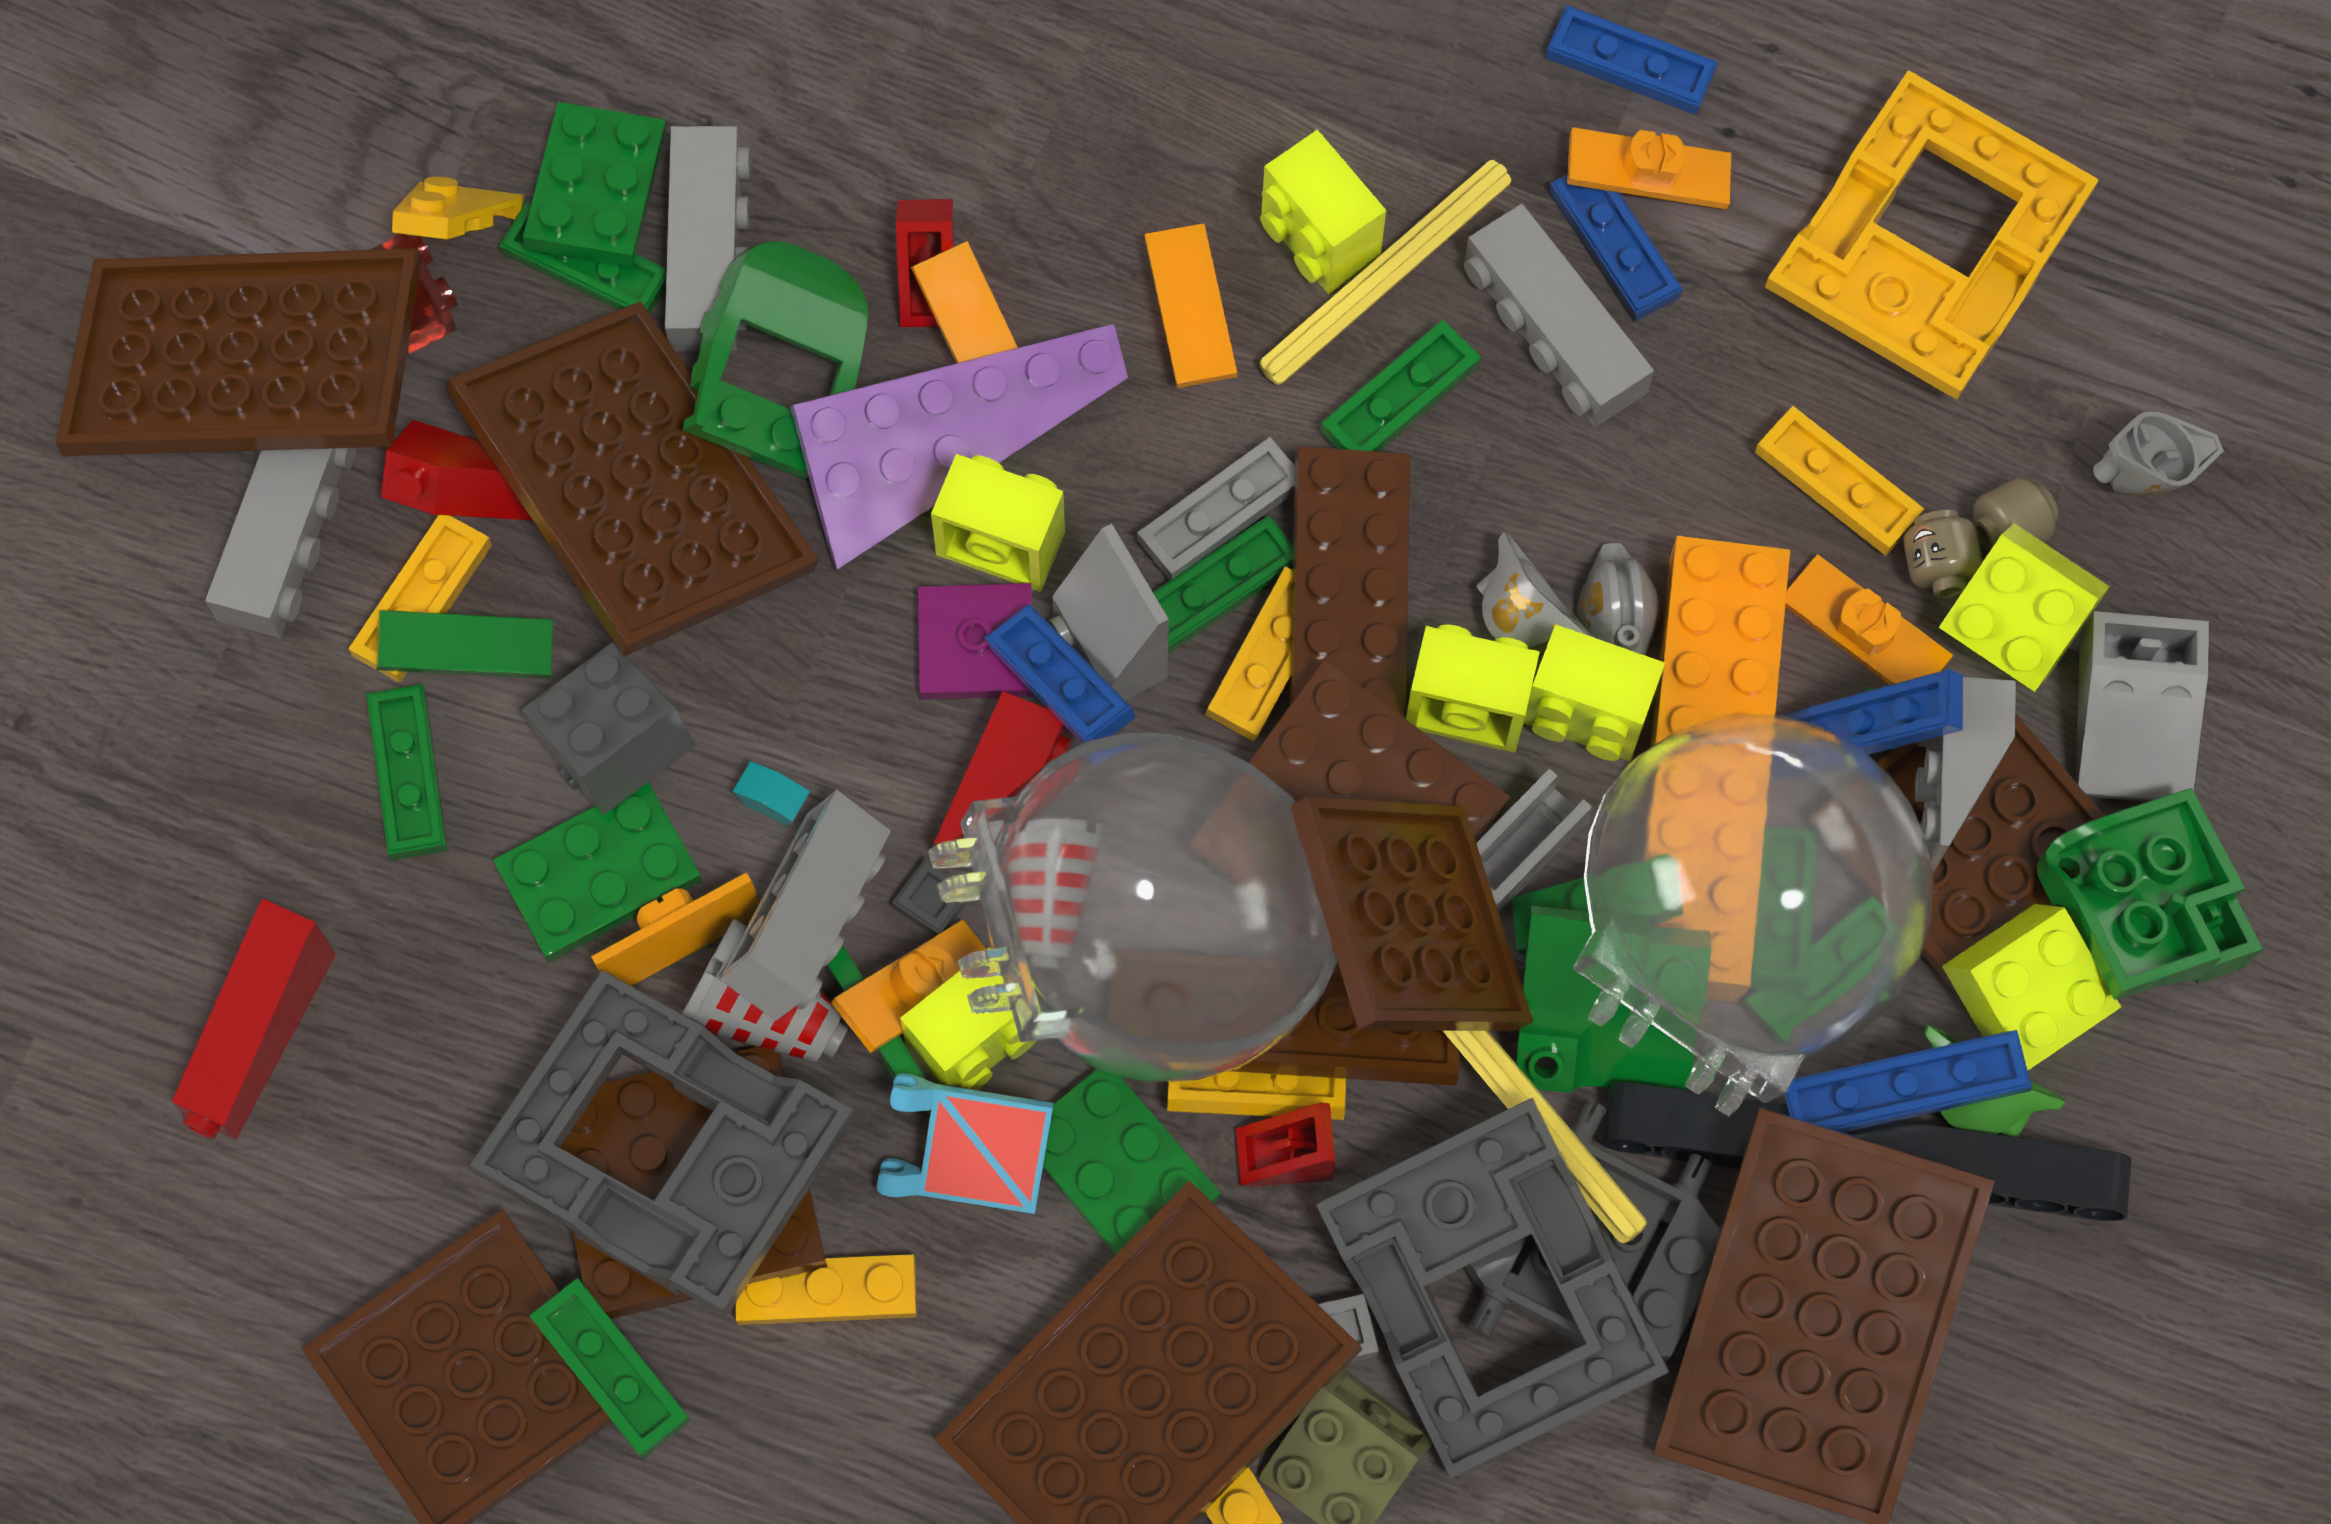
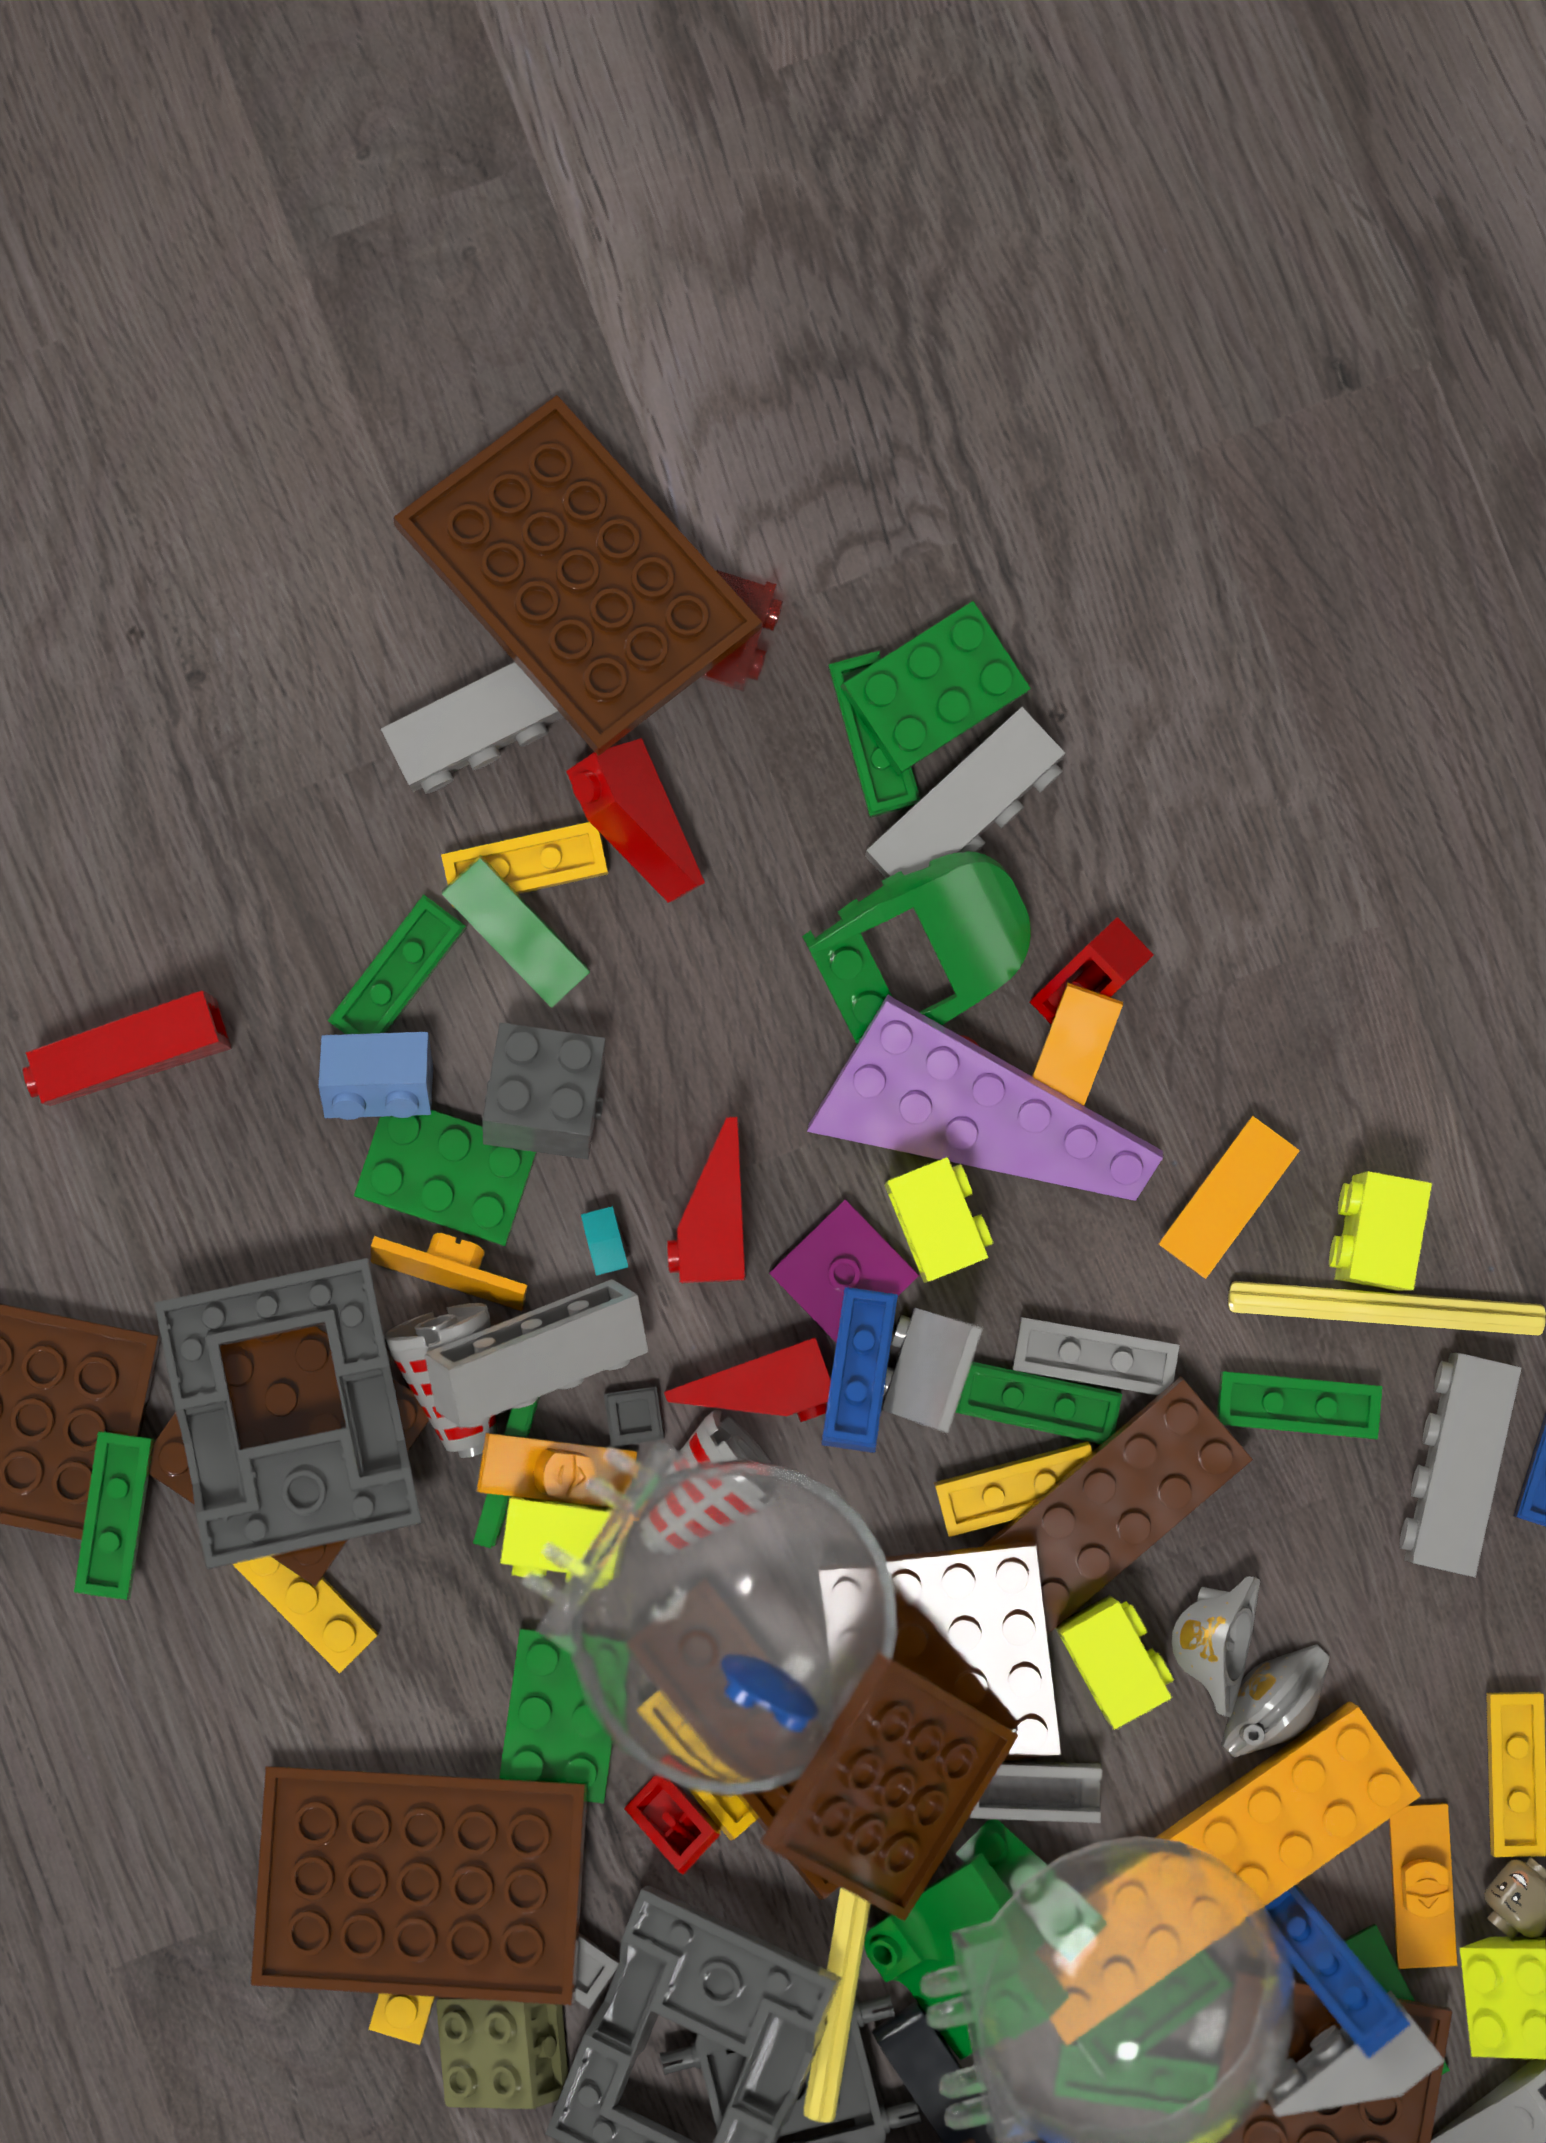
camera: 45 degrees right, 15 degrees up
(447, 210) = (818, 610): yellow wing -> none
(467, 847) = (376, 1075): none -> medium blue brick
(629, 502) = (716, 953): reddish brown plate -> none
(846, 693) = (711, 1226): none -> red slope
(976, 1148) = (477, 1610): flag -> none
(1225, 918) = (771, 1687): none -> blue dish
(1592, 694) = (1187, 1751): neon yellow brick -> none

